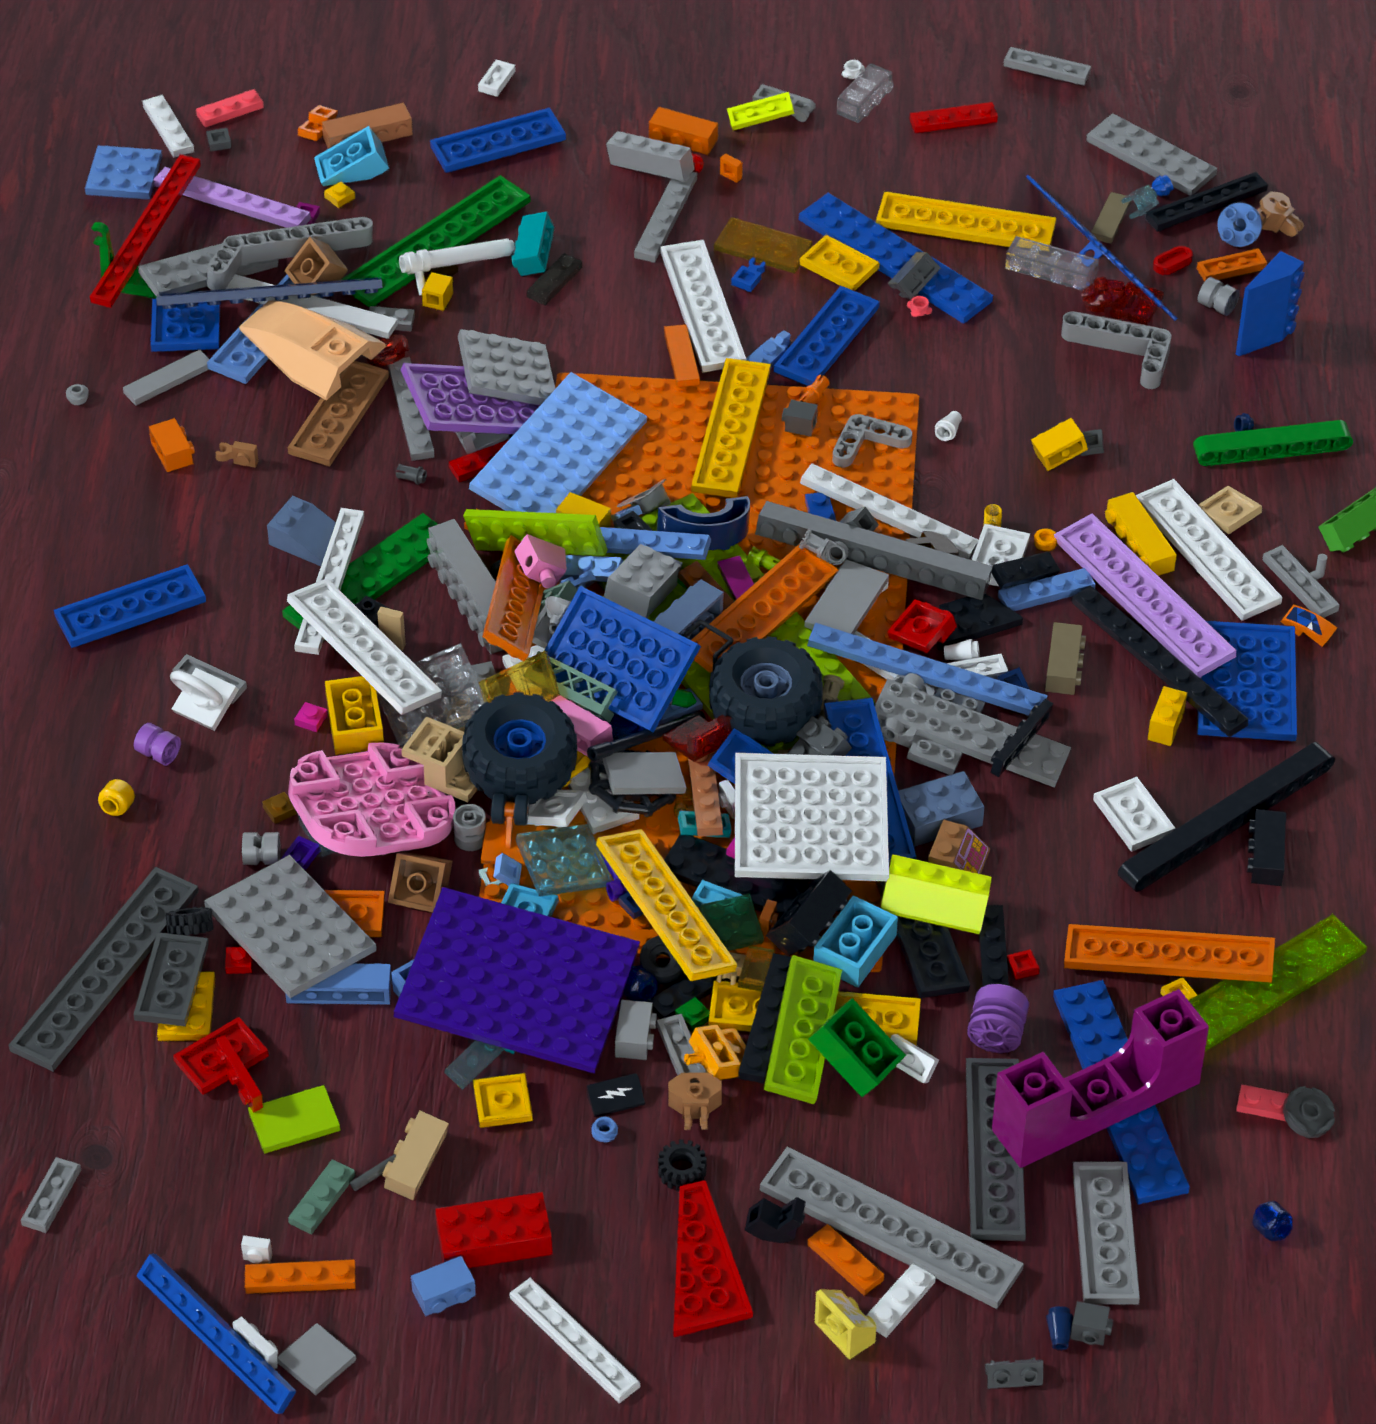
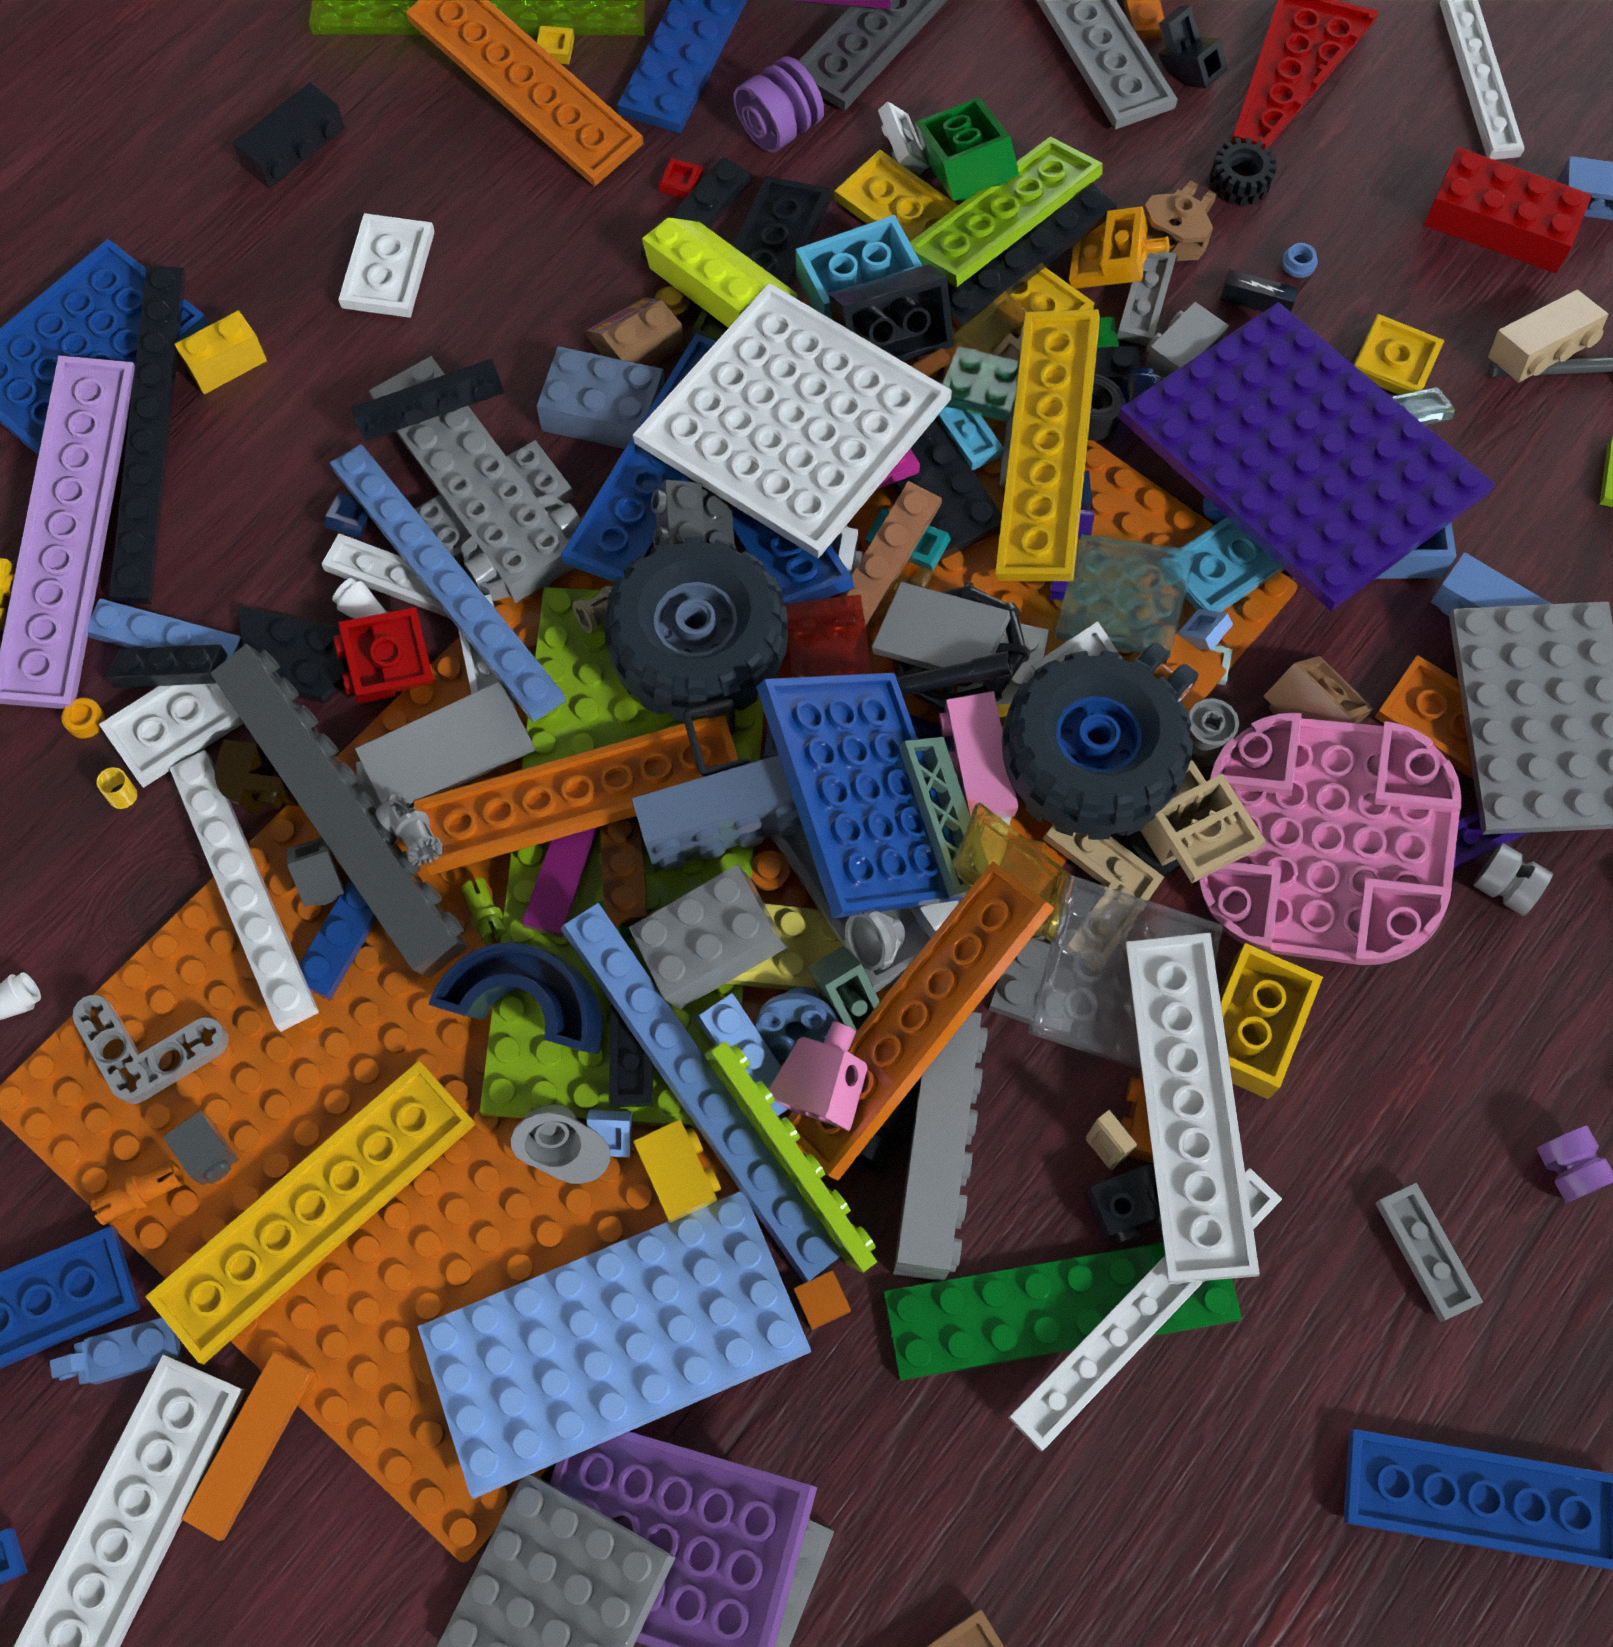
camera: 145 degrees left, 20 degrees up
(202, 697) = (1462, 1206): white tile -> none
(279, 807) = (1442, 952): pearl gold plate -> none
(301, 530) = (1115, 1463): sand blue slope -> none
(311, 717) = (1308, 1083): dark pink plate -> none
(413, 474) = (861, 1485): dark grey pin -> none
(471, 464) = (728, 1437): red plate -> none
(1065, 658) = (252, 511): dark tan brick -> none
(1225, 817) = (288, 198): black beam -> none

